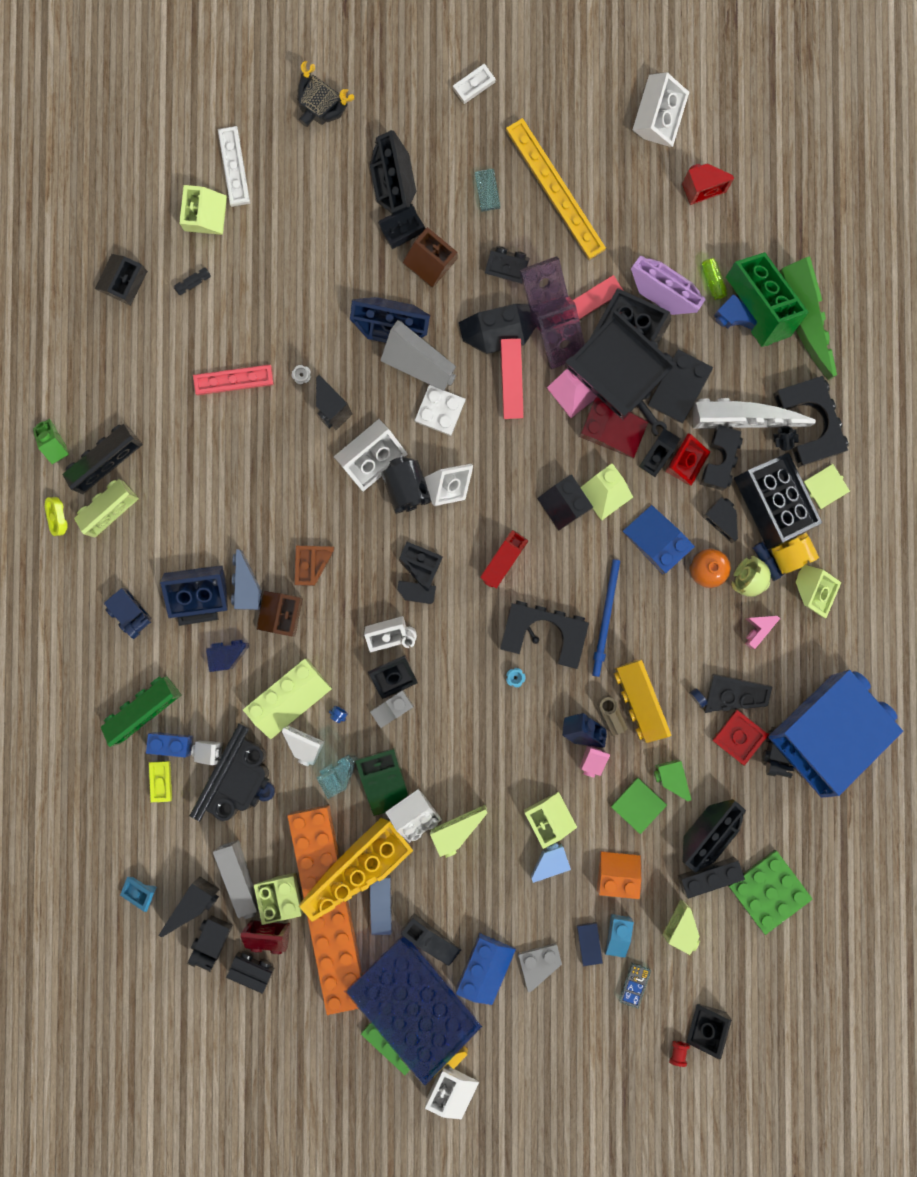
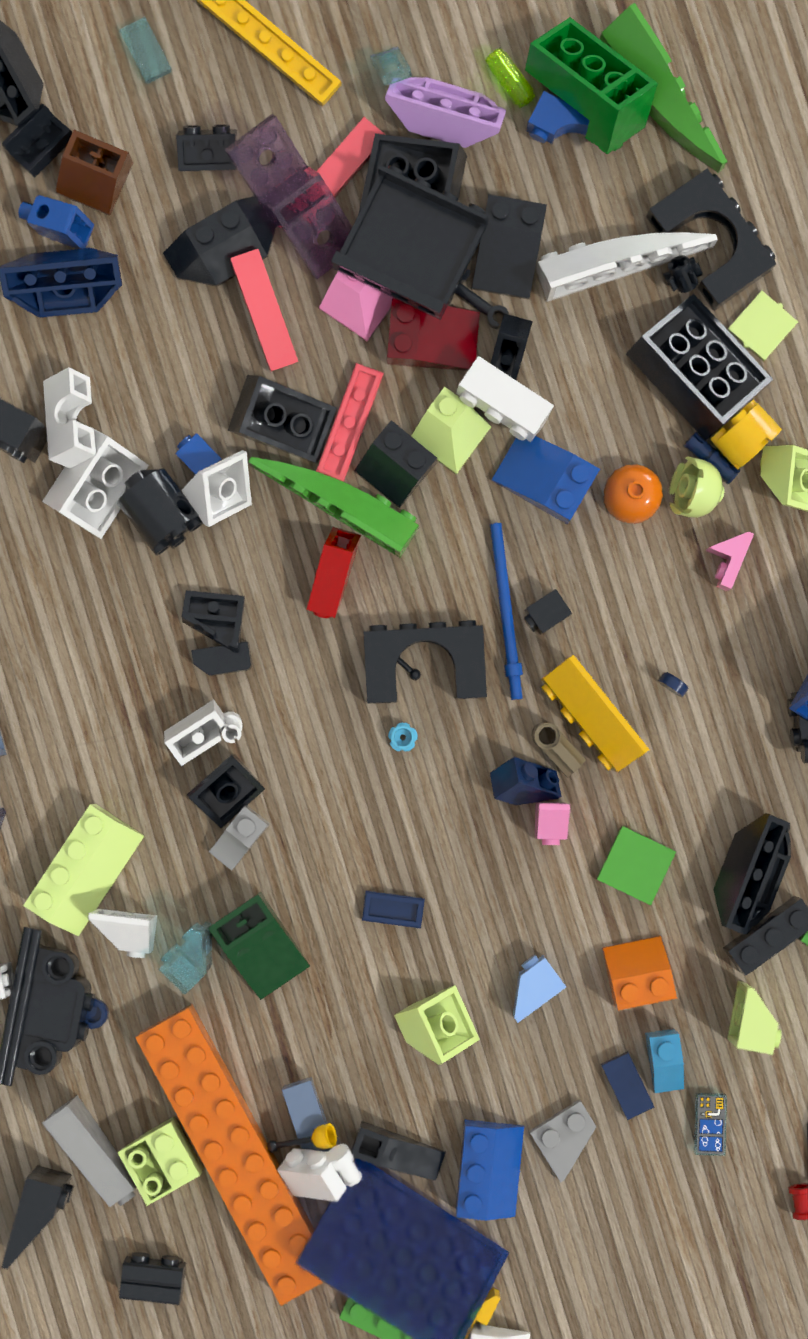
camera: 20 degrees left, 0 degrees up
(210, 943) = (82, 1256): black hinge -> none
(266, 937) = (160, 1221): dark red slope -> none
(279, 613) = (35, 751): reddish brown slope -> none
(310, 563) = (57, 665): dark orange wing -> none
(338, 714) = (164, 870): blue plate -> none
(359, 867) = (261, 1079): yellow wedge -> none
(362, 422) = (64, 398): none -> white arch
(377, 938) = (319, 1173): none -> white hinge
(386, 916) = (323, 1138): none -> yellow hinge
(398, 281) = (57, 221): none -> blue torso
(413, 816) = (317, 982): white slope -> none
(417, 358) = (117, 322): light grey slope -> none
(440, 410) = (175, 387): white plate -> none
(441, 457) = (196, 453): none -> blue brick
(452, 834) = (381, 989): yellowish green slope -> none
(475, 785) = (393, 909): none -> dark blue tile
(481, 868) = (438, 1025): none -> yellowish green slope
(501, 451) = (282, 418): none -> black slope
(525, 517) = (349, 505): none -> bright green wedge
(543, 467) = (350, 422): none -> coral tile
(550, 820) = (515, 925): yellowish green slope -> none
(632, 627) = (546, 612): none -> black brick
(641, 248) = (391, 66): none -> clear light blue plate
(647, 483) = (504, 400): none -> white slope
(673, 778) = (672, 810): bright green slope -> none
(688, 460) = (553, 348): red slope -> none
(723, 518) = (629, 416): black slope -> none
(727, 442) = (600, 305): black arch -> none
(735, 693) = (724, 661): black wing -> none
(740, 737) = (750, 722): red plate -> none

